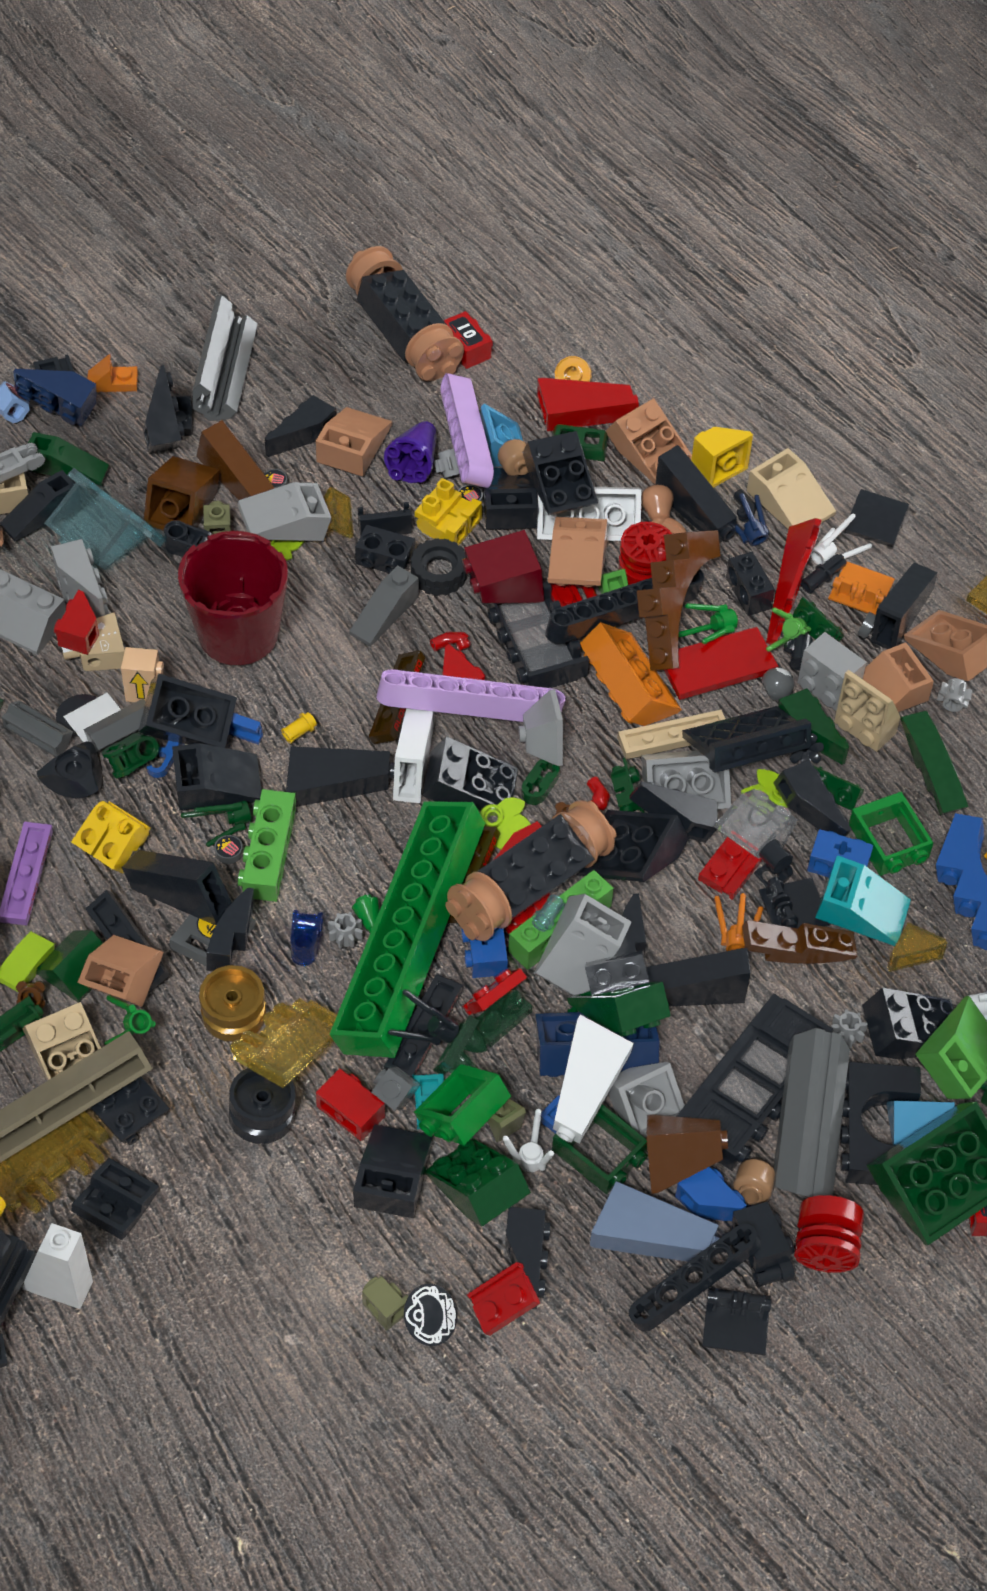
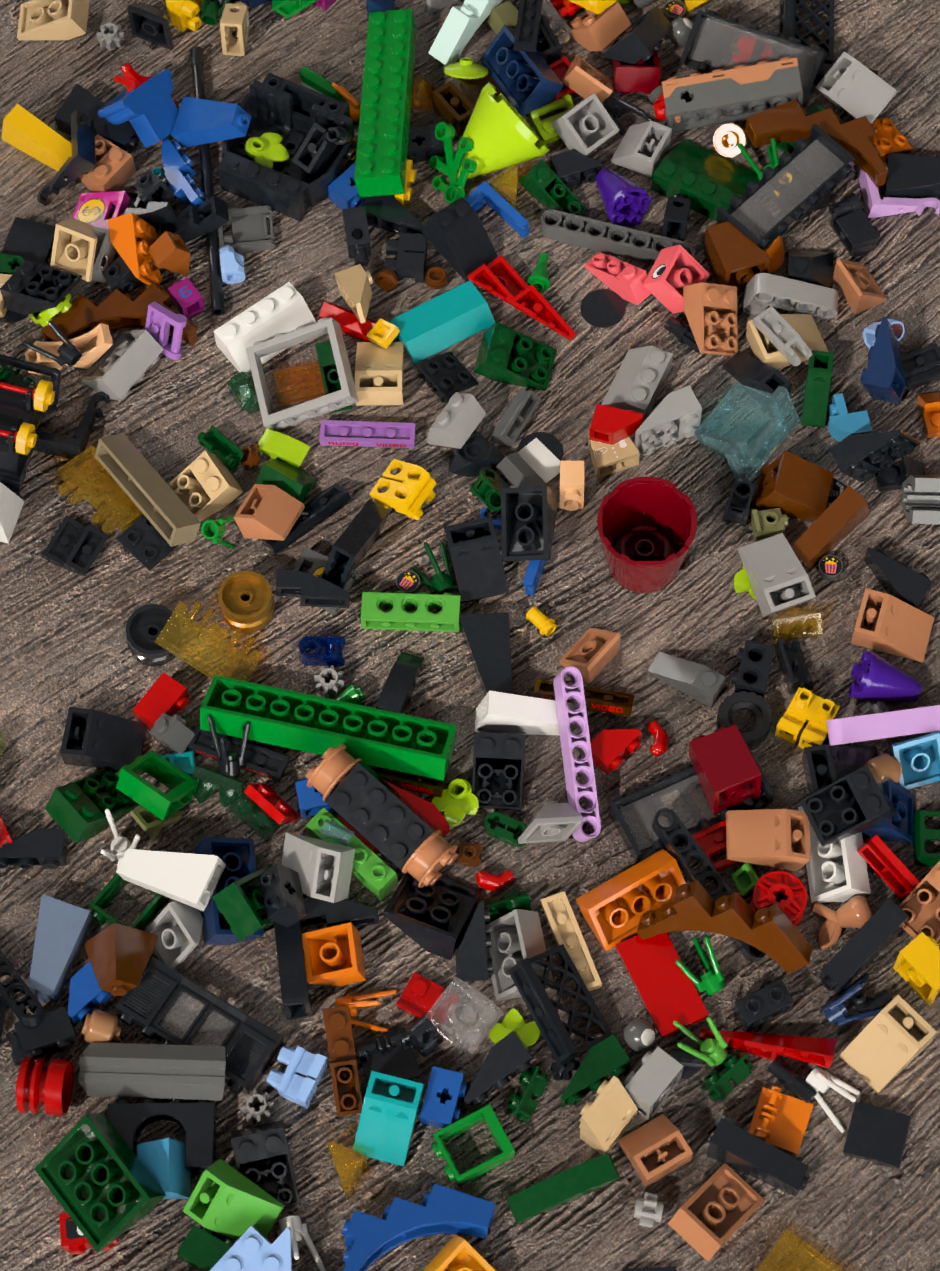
camera: 90 degrees right, 10 degrees up
(35, 778) = (456, 421): none -> light grey slope
(114, 445) = (844, 424): none -> dark azure brick
(346, 683) = (592, 653): none -> nougat slope
(359, 861) = (400, 683): none -> black slope
(614, 468) = (888, 866): none -> red piece
(680, 934) = (334, 955): none -> orange slope
(801, 982) = (301, 1075): none -> light blue hips

